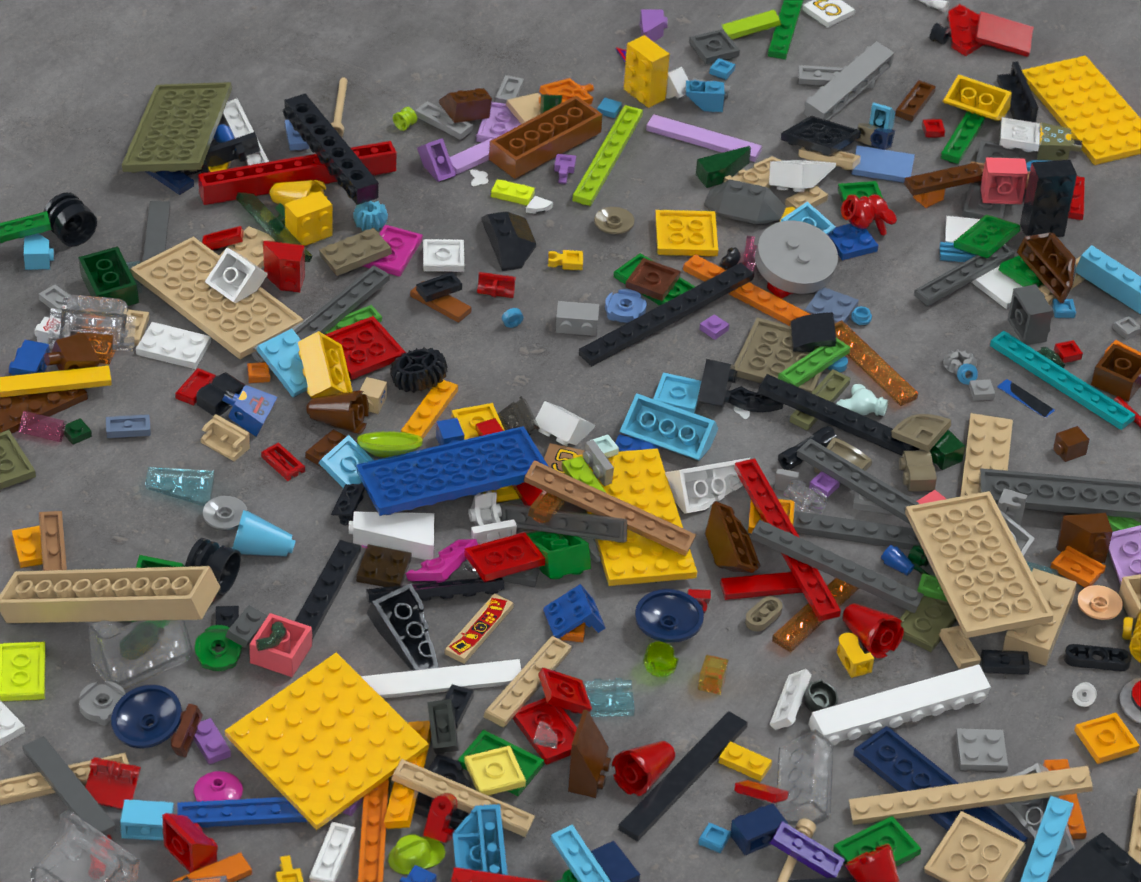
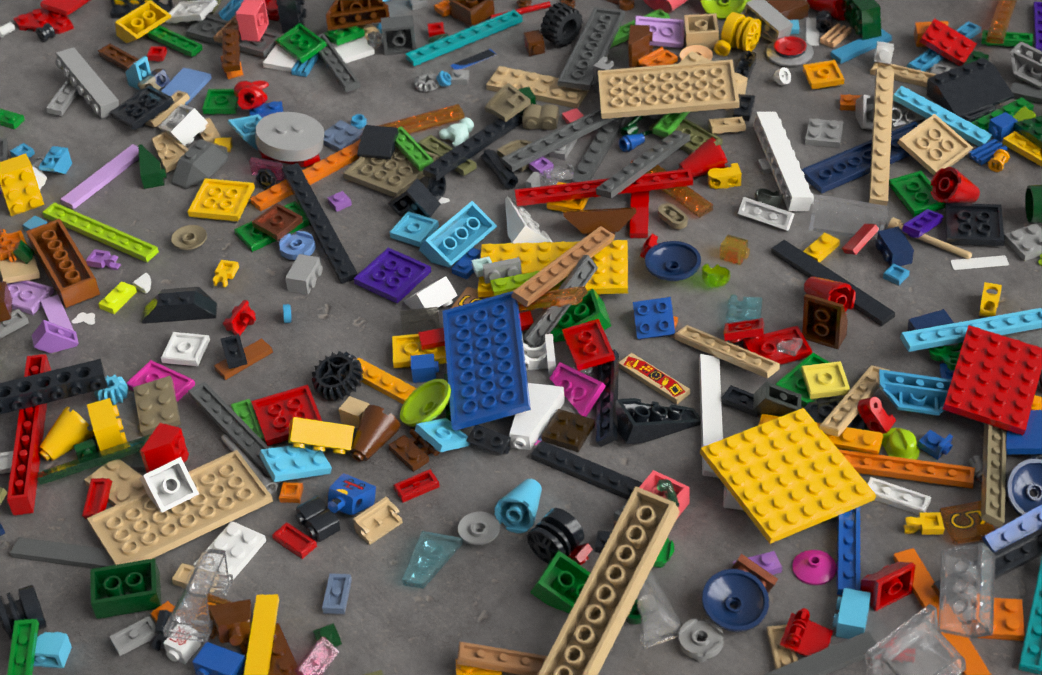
camera: 70 degrees left, 0 degrees up
(595, 389) = (392, 275): none -> dark purple plate
(1102, 454) = (561, 24): none -> black tyre

